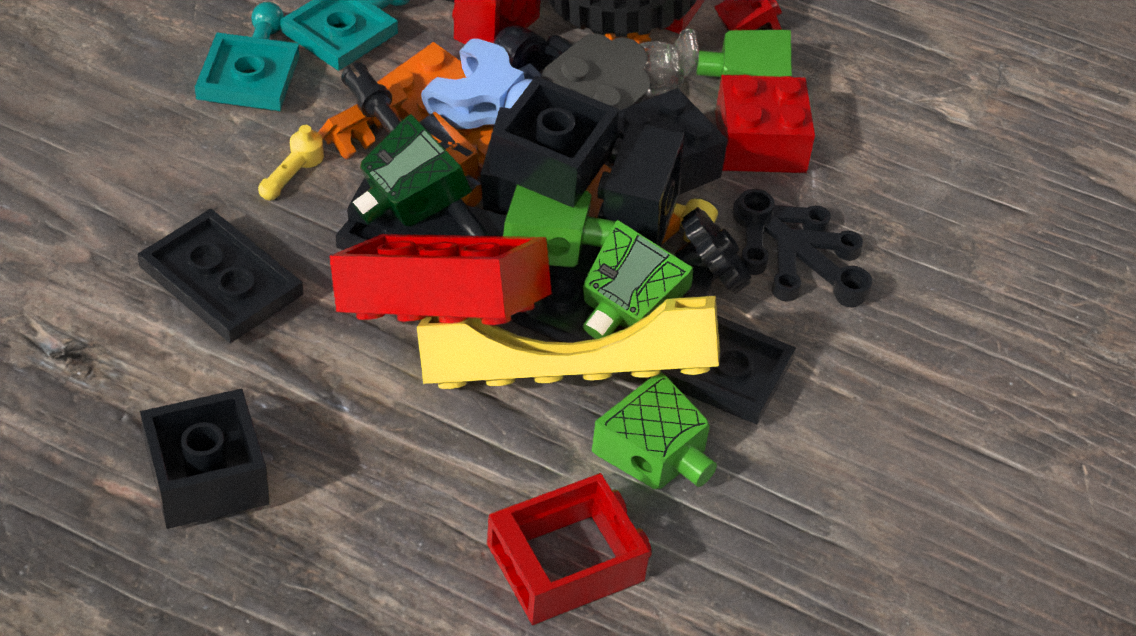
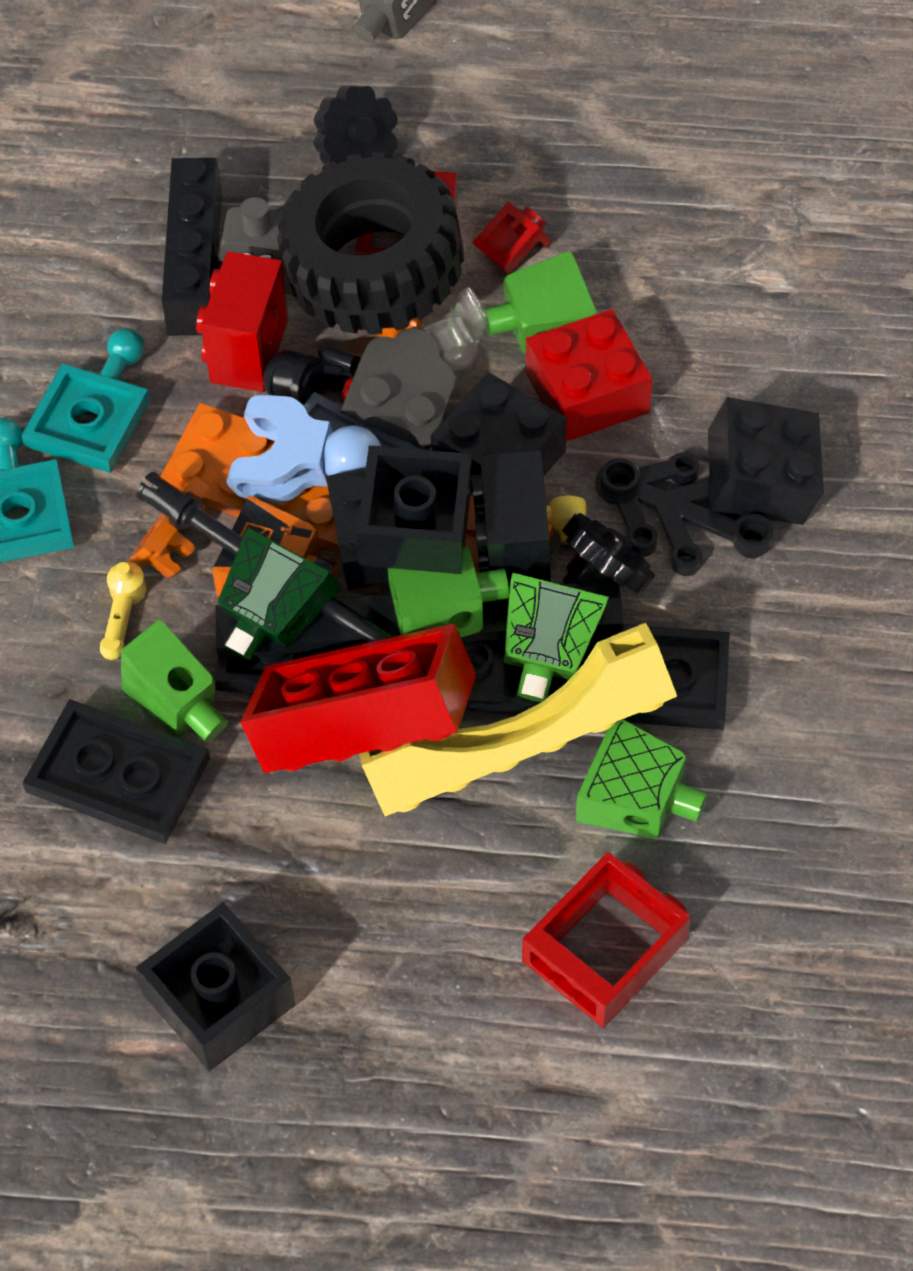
camera: 15 degrees left, 10 degrees up
(299, 235) = (170, 683): none -> bright green torso
(887, 229) = (765, 461): none -> black brick

